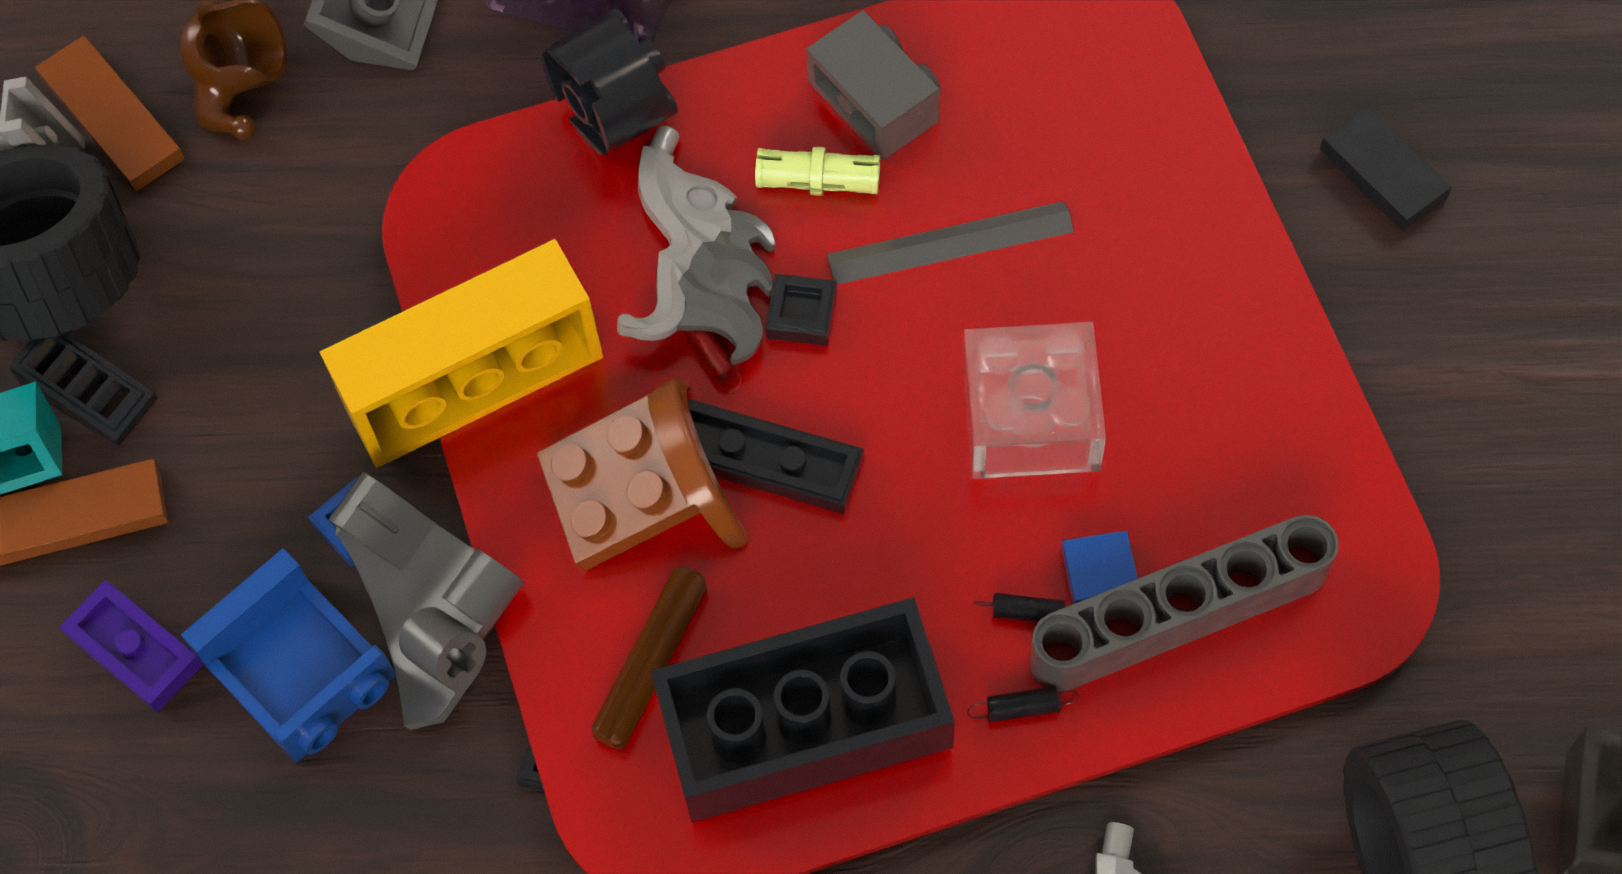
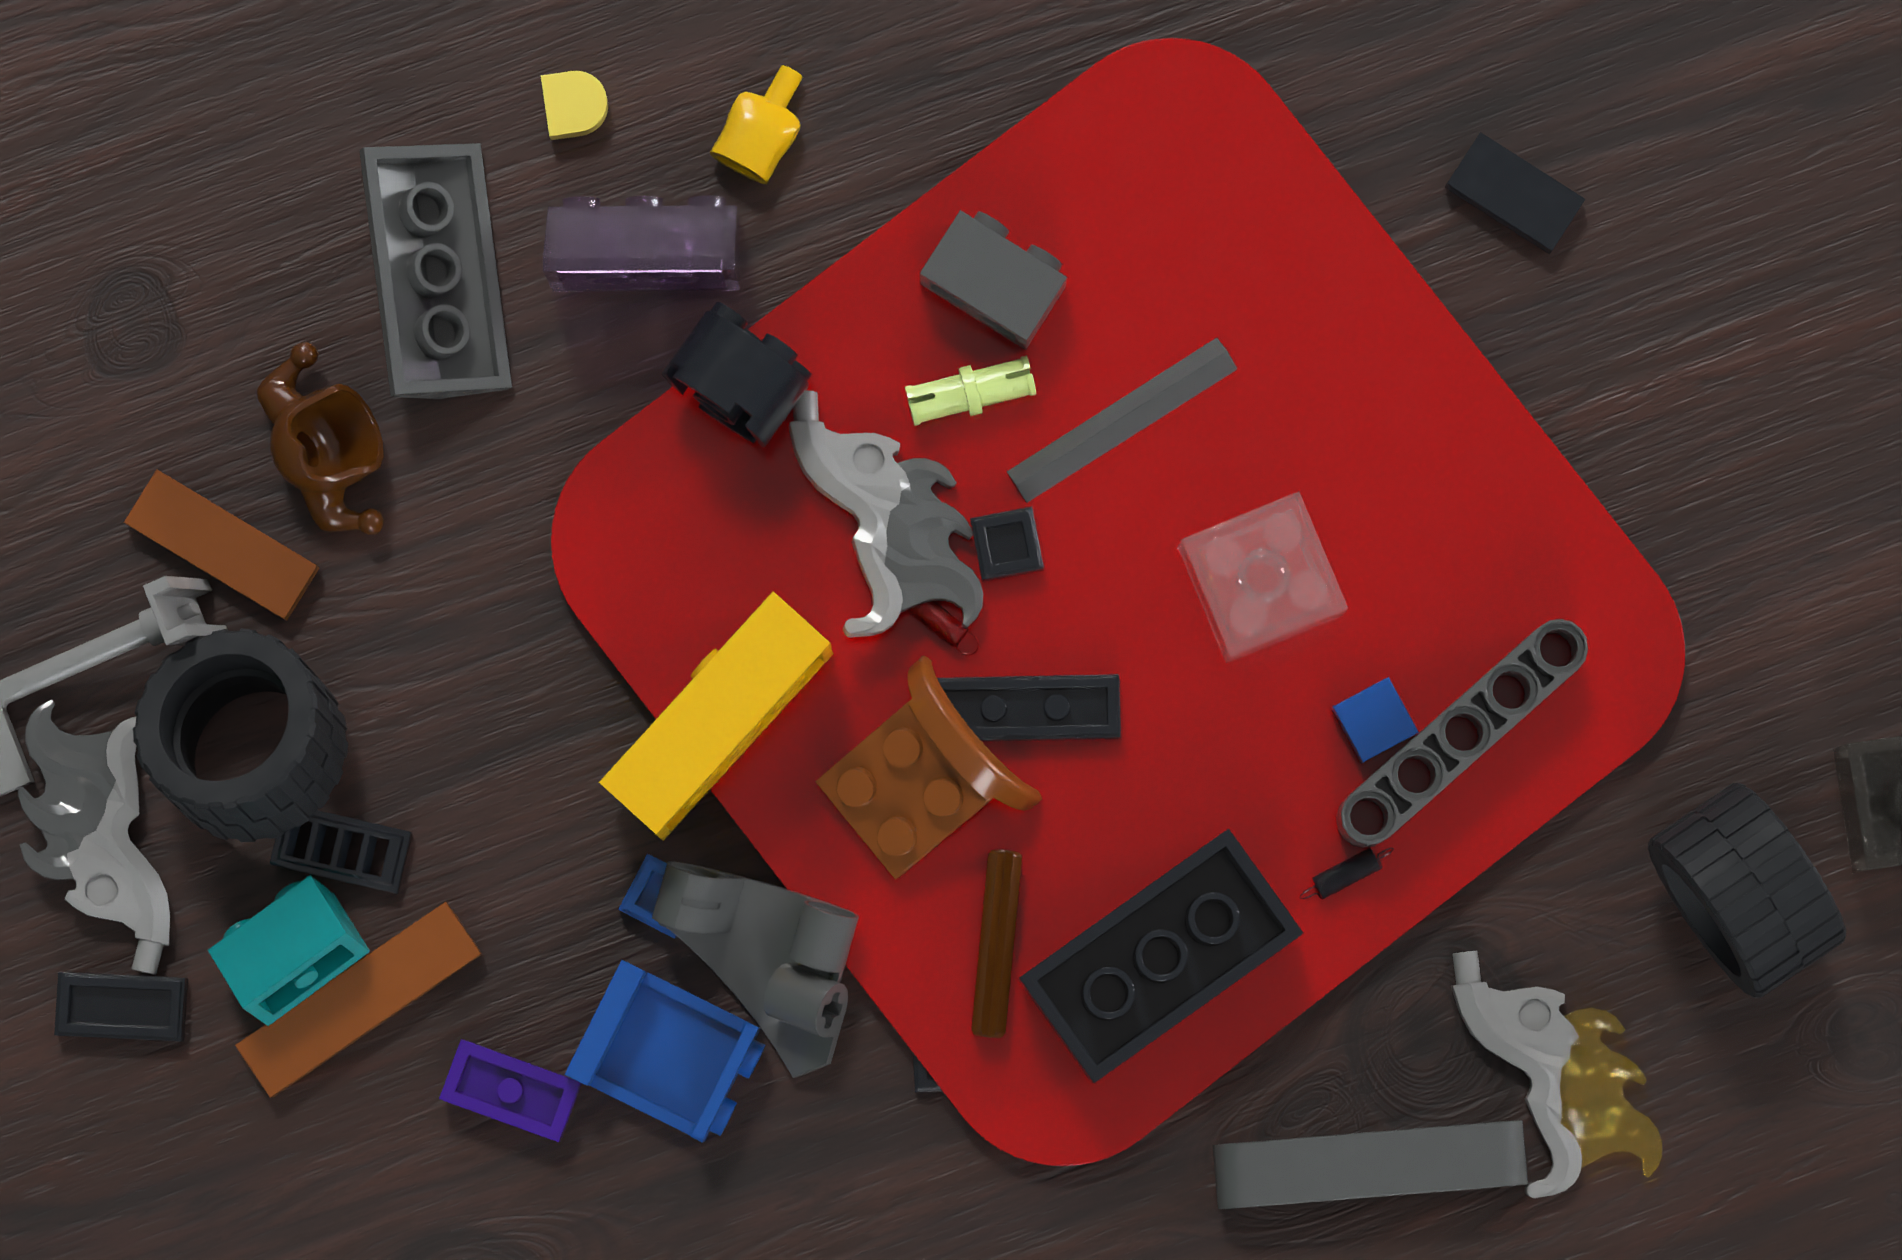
camera: 25 degrees left, 20 degrees up
(1022, 607) = (1321, 780): black piece -> none

